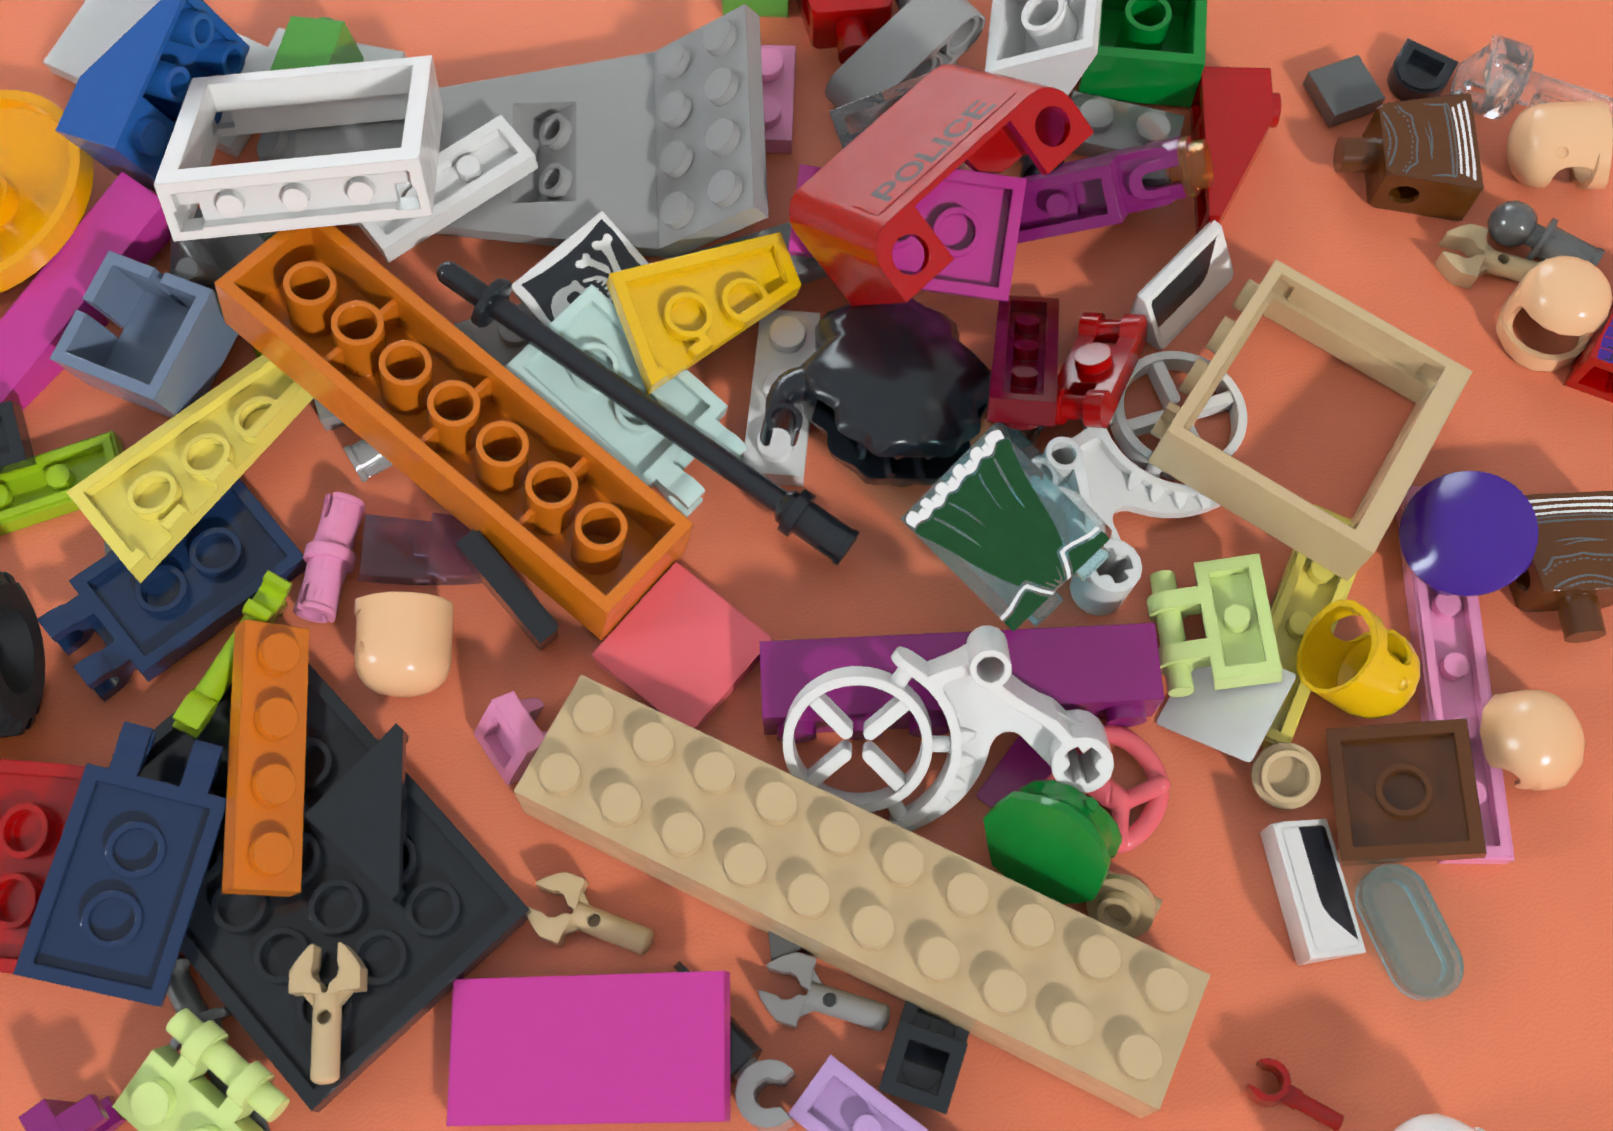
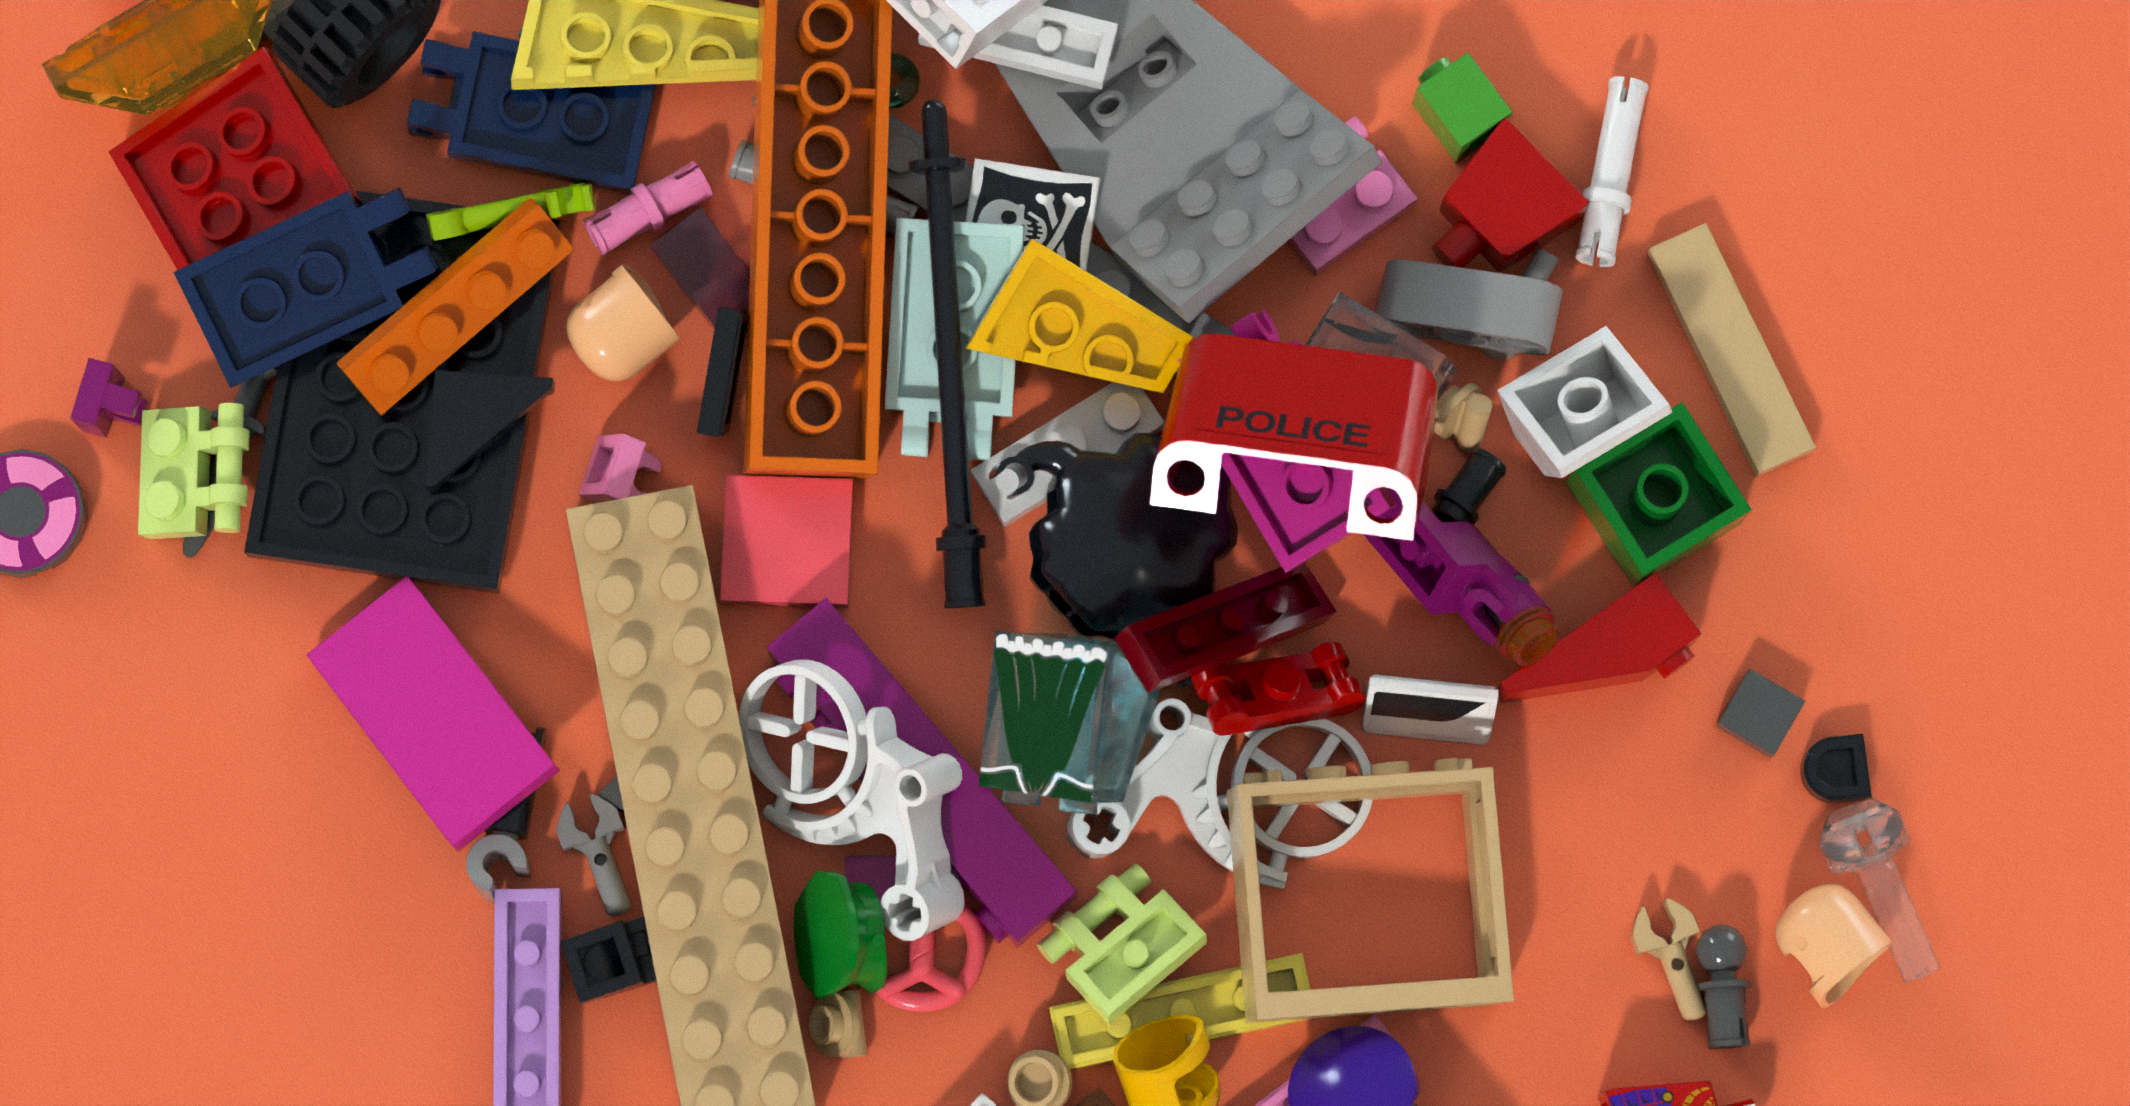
camera: 50 degrees right, 10 degrees up
(327, 1005) = (320, 502): tan bar -> none
(586, 917) = (525, 634): tan bar -> none
(1122, 124) = (1557, 546): light grey plate -> none
(1226, 718) = (1051, 1005): white sticker -> none
(1418, 157) = (1724, 820): reddish brown torso -> none
(1562, 297) = (1648, 1037): light nougat helmet -> none

